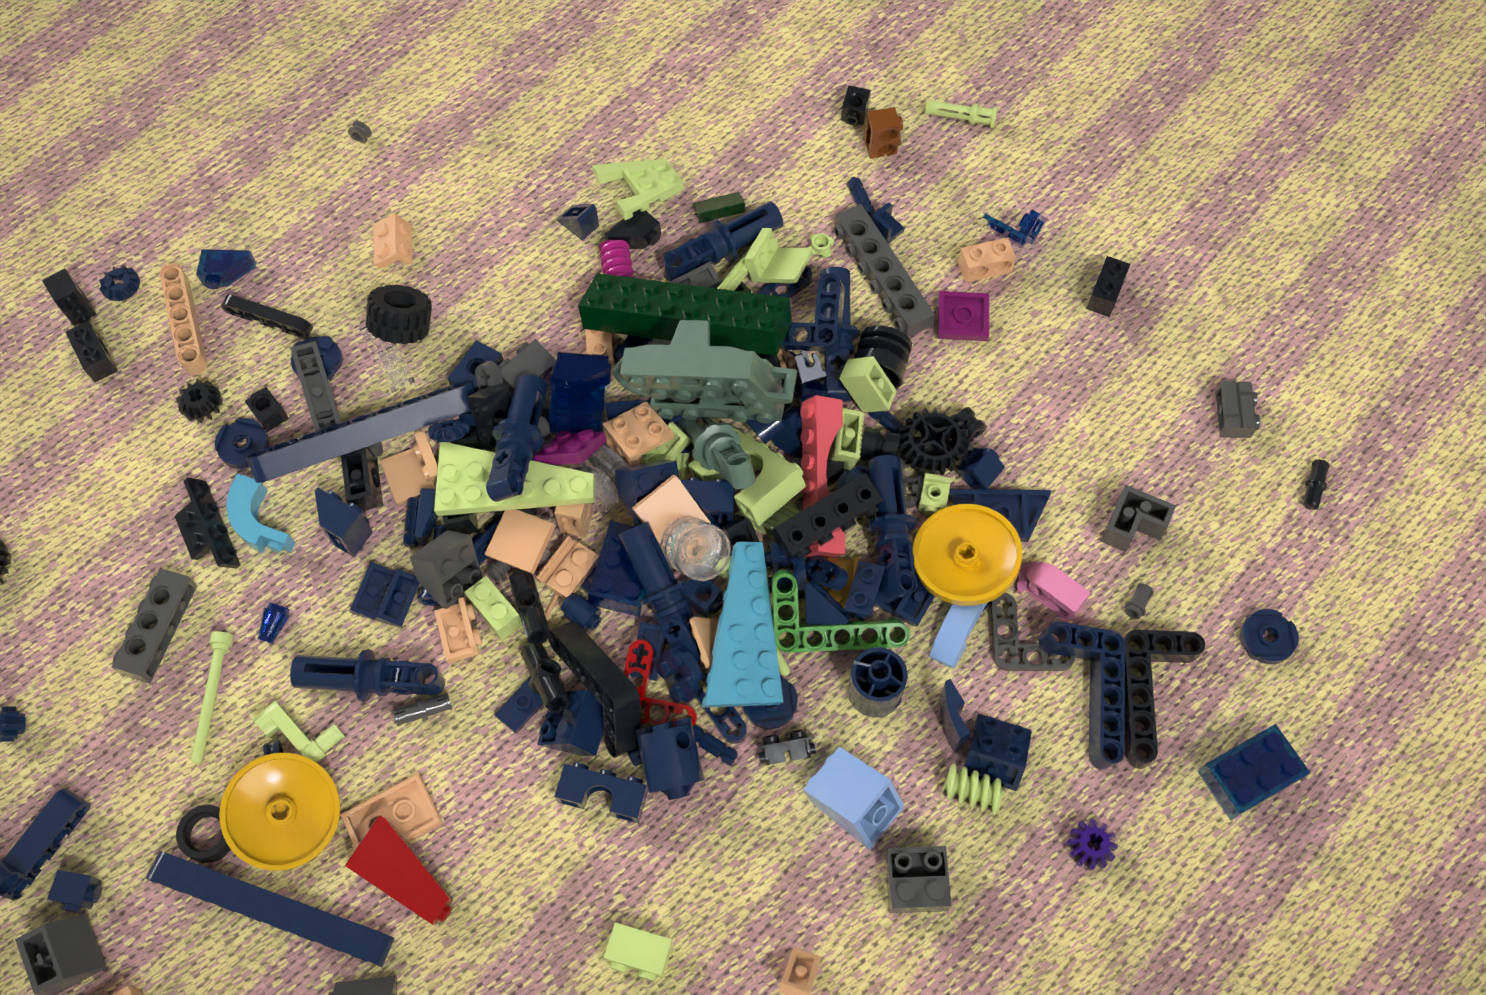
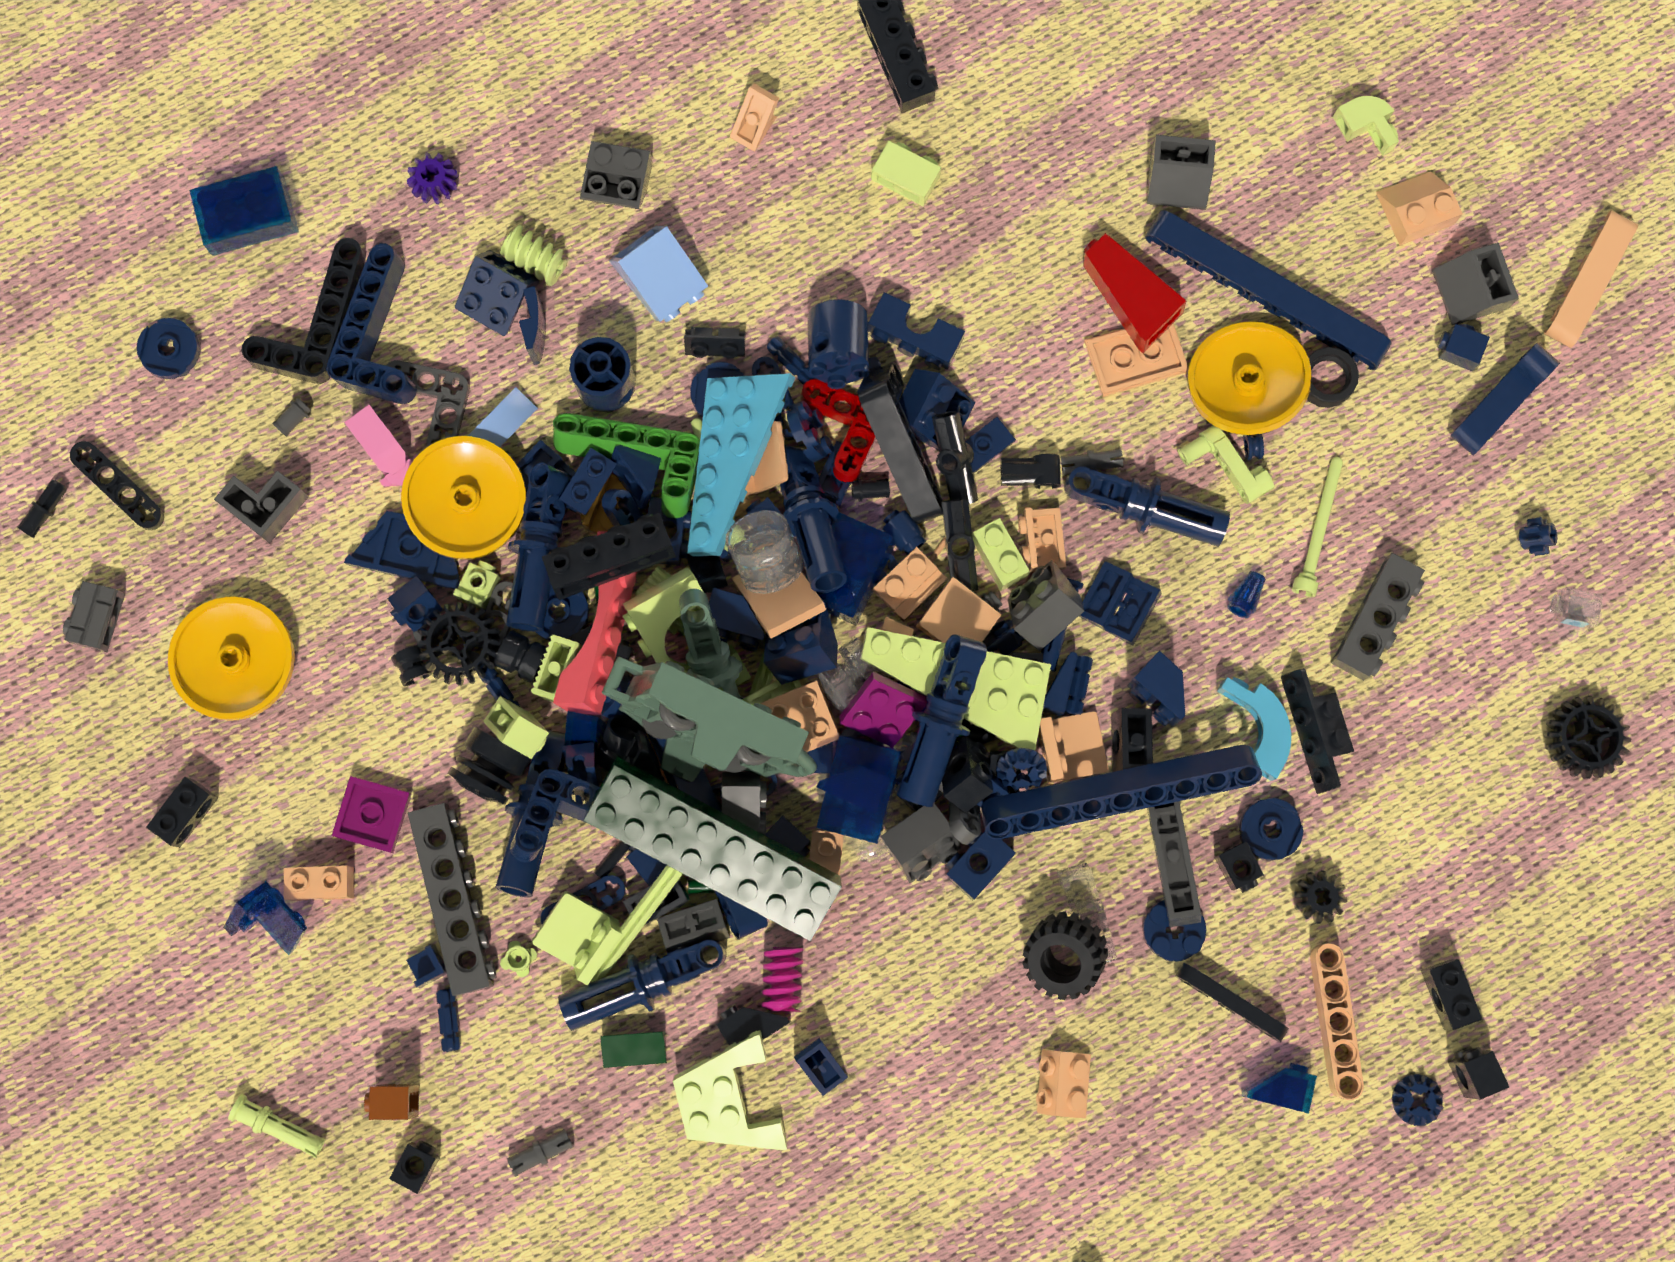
camera: 170 degrees left, 15 degrees up
(470, 689) = (1035, 471): none -> black piece
(617, 644) = (870, 489): none -> black pin
(770, 131) = (540, 1152): none -> dark grey pin
(1114, 397) = (231, 658): none -> yellow dish
(1264, 512) = (117, 485): none -> black beam

